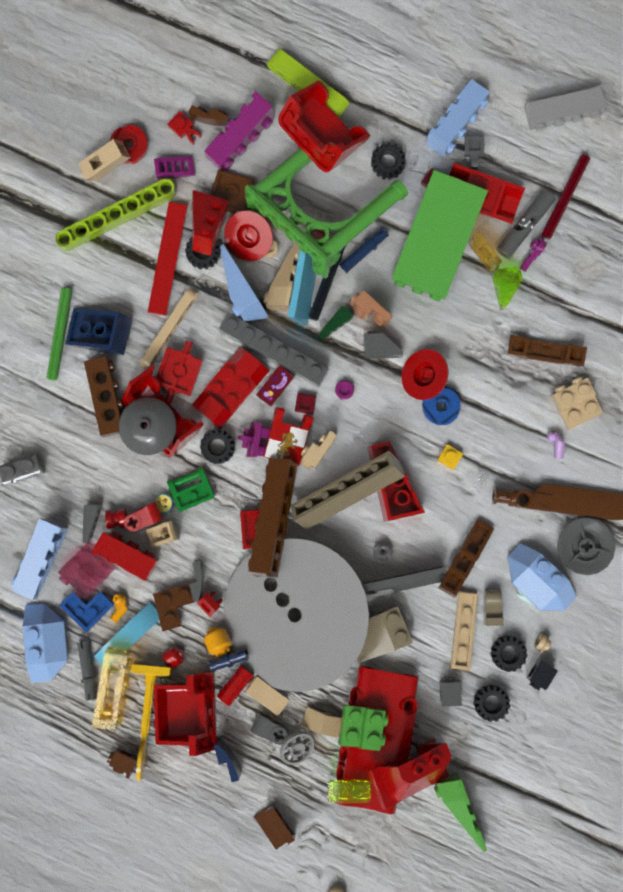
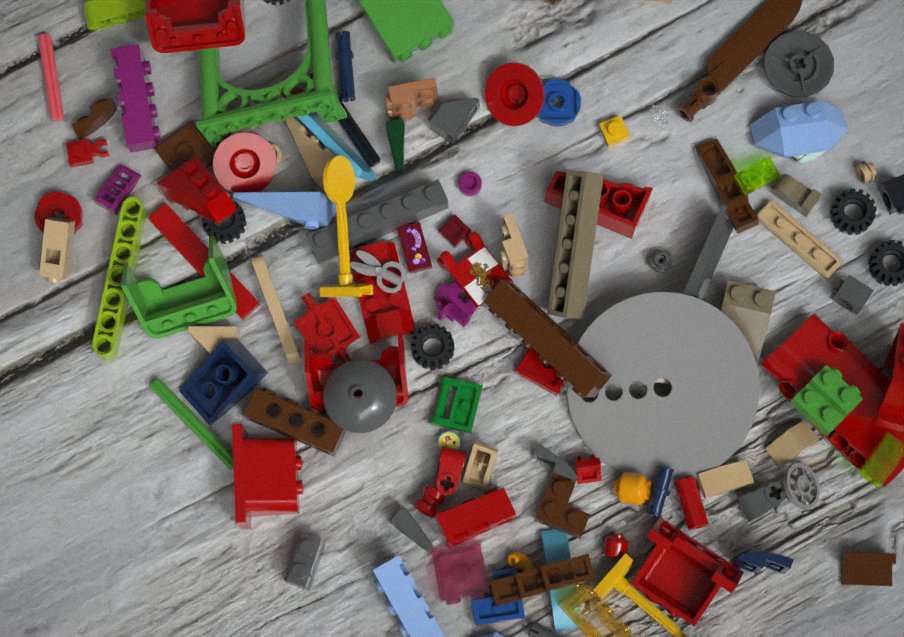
camera: 50 degrees left, 10 degrees down
(54, 403) = (264, 476): none -> red windscreen
(114, 628) = (542, 580): none -> reddish brown slope
(120, 304) = (211, 336): none -> tan slope
(126, 267) = (186, 304): none -> bright green windscreen
(216, 66) = (50, 77): none -> coral axle
(239, 372) = (374, 268): none -> light grey piece
(269, 310) = (339, 187): none -> yellow piece
(486, 573) = (757, 175): none -> clear neon green slope
(559, 444) = (676, 18): lavender arm -> none

